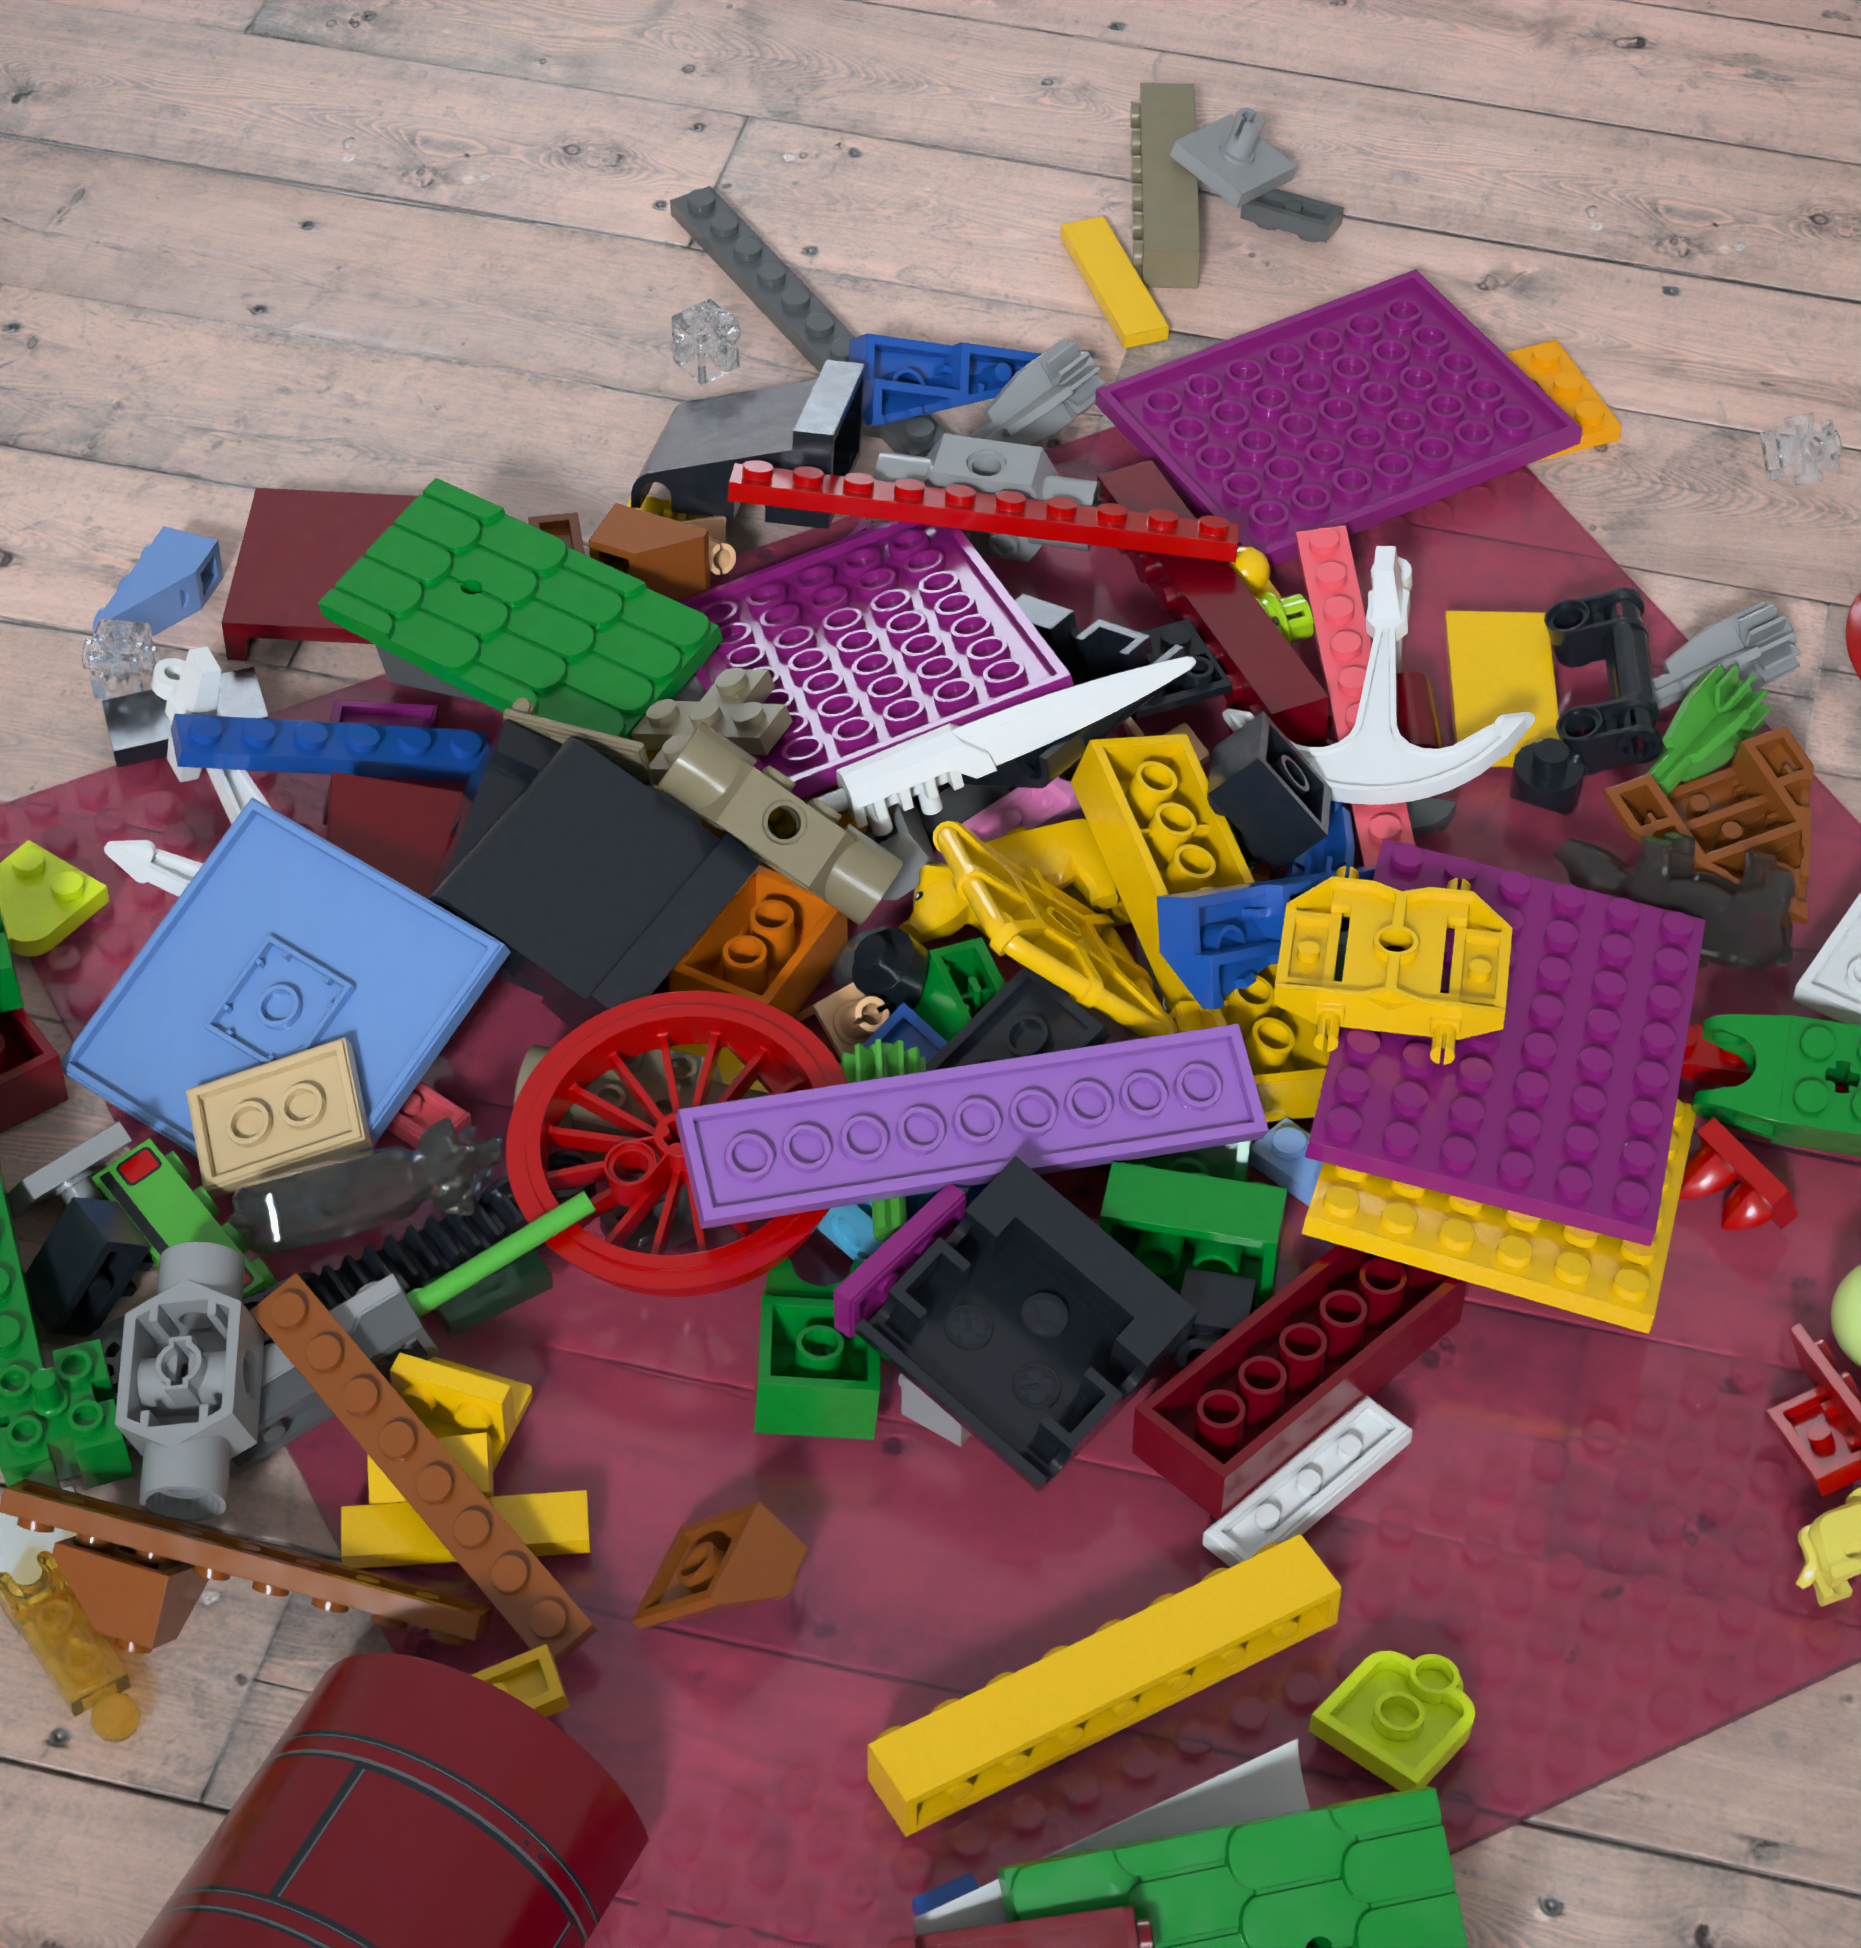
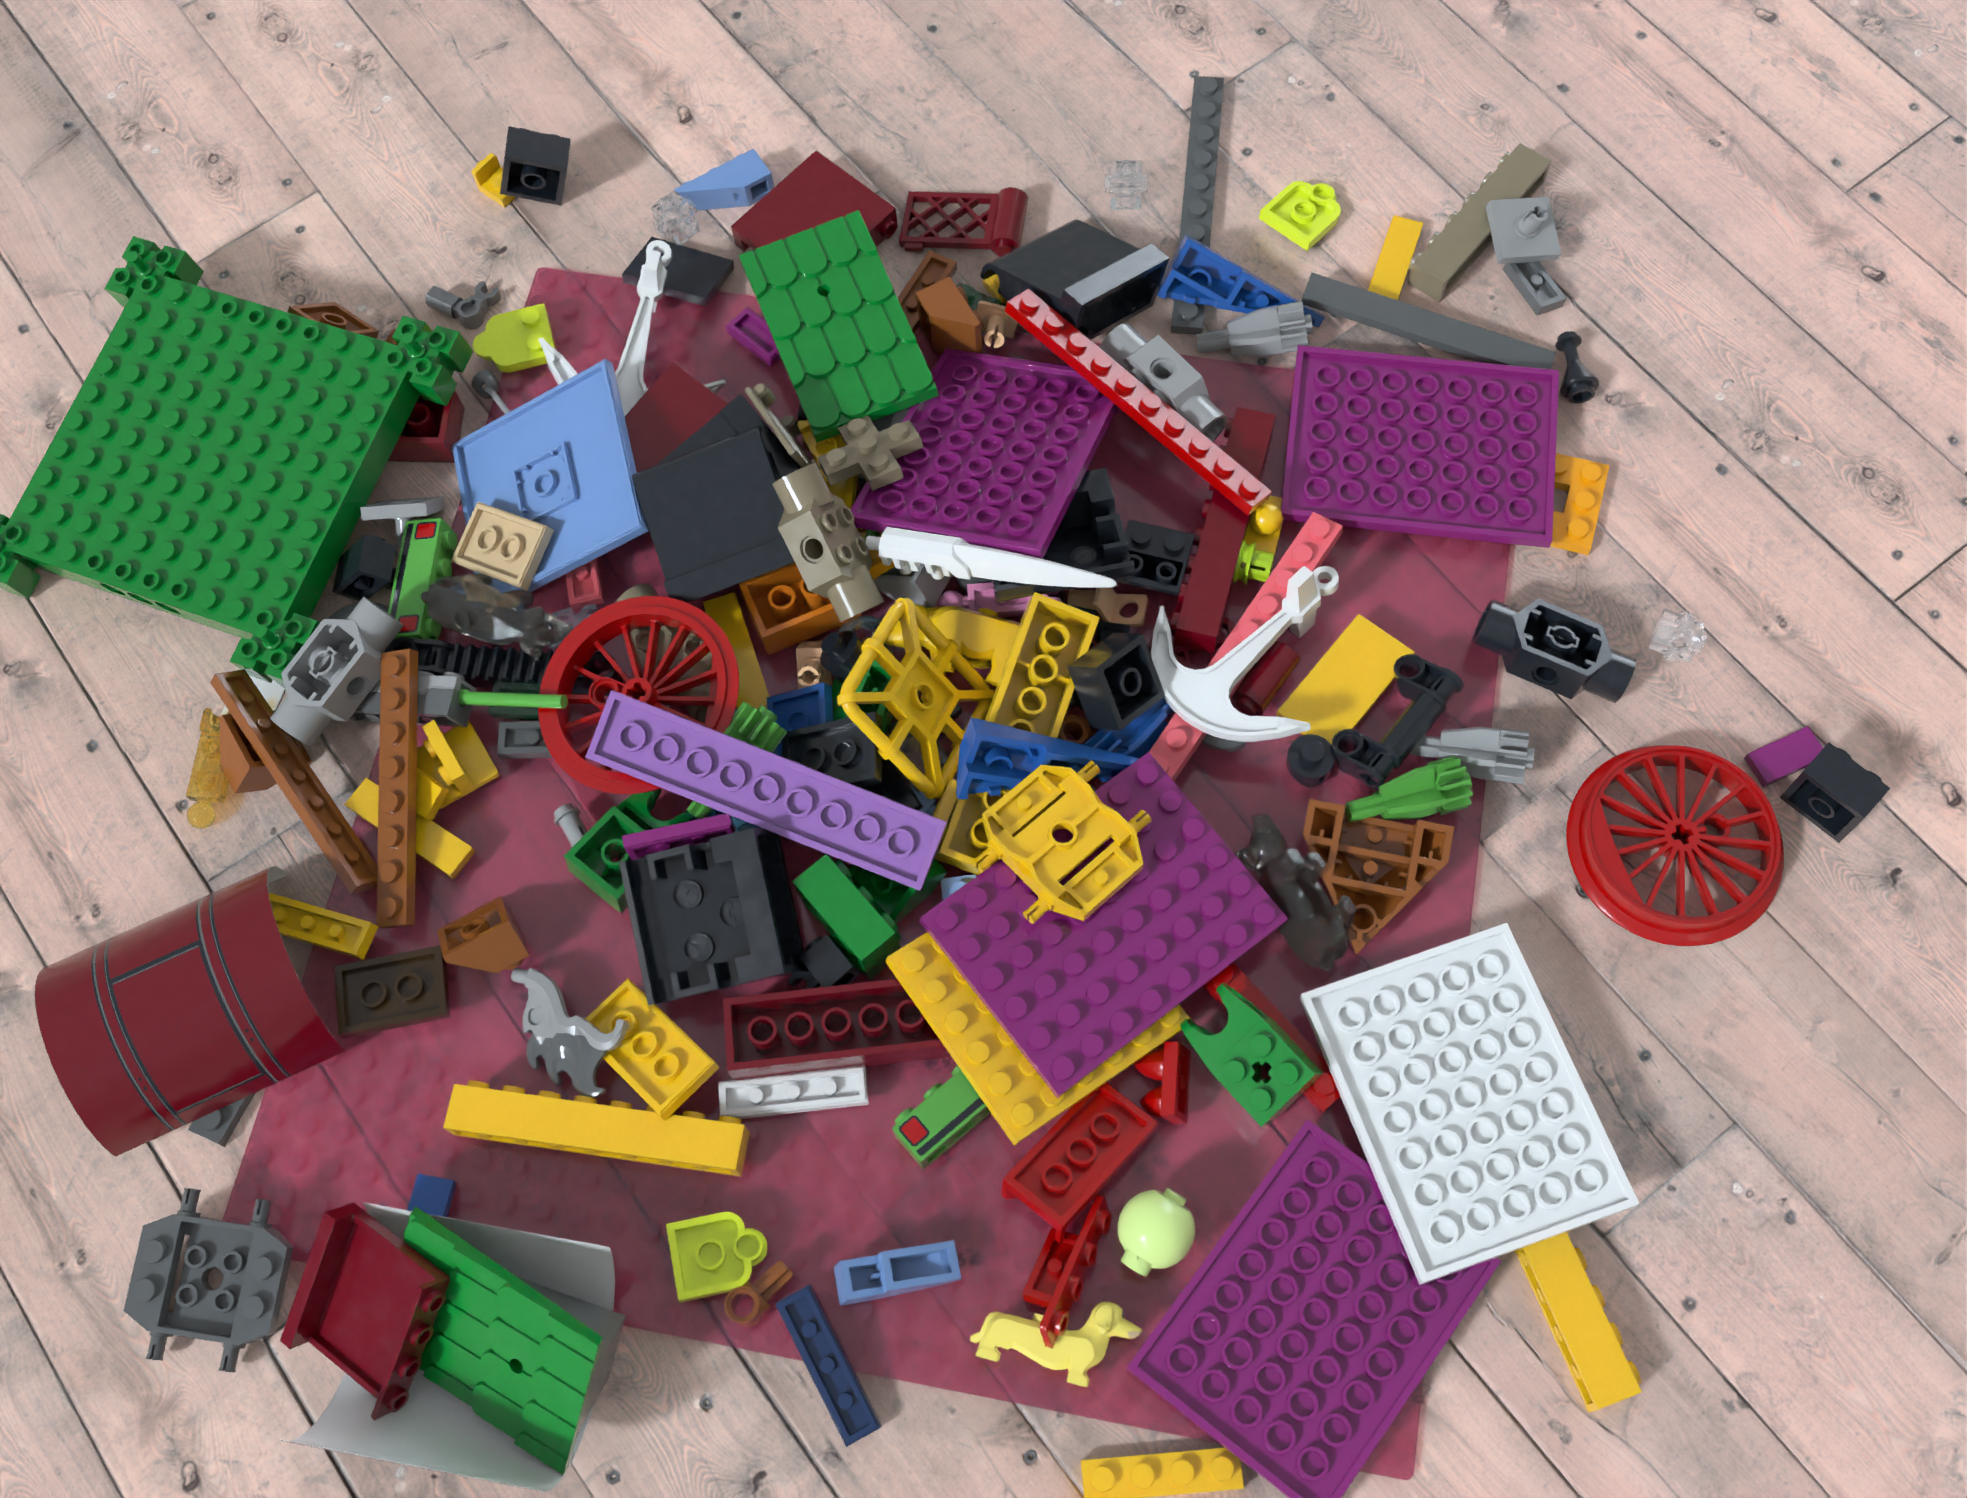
camera: 45 degrees right, 20 degrees up
(37, 983) = (490, 389): none -> dark grey hinge
(326, 747) = (702, 339): blue plate -> none
(544, 1320) = (521, 741): none -> dark grey plate
(578, 451) = (1003, 226): none -> dark red piece
(659, 1713) = (391, 992): none -> dark brown plate
(704, 1382) = (569, 820): none -> light grey pin
(948, 1618) = (563, 1040): none -> piece
(950, 272) = (1303, 212): none -> neon yellow plate
(1079, 1545) = (655, 1052): none -> yellow tile
(1199, 310) = (1422, 325): none -> dark grey tile
(1444, 274) = (1578, 381): none -> black piece
(1504, 1715) = (760, 1291): none -> dark orange axle
(1521, 1379) = (940, 1119): none -> bright green brick
(1639, 1580) = (896, 1272): none -> medium blue slope
(1663, 1738) = (828, 1365): none -> dark blue tile
(1693, 526) = (1554, 649): none -> black brick
(1730, 1312) = (1078, 1157): none -> red plate

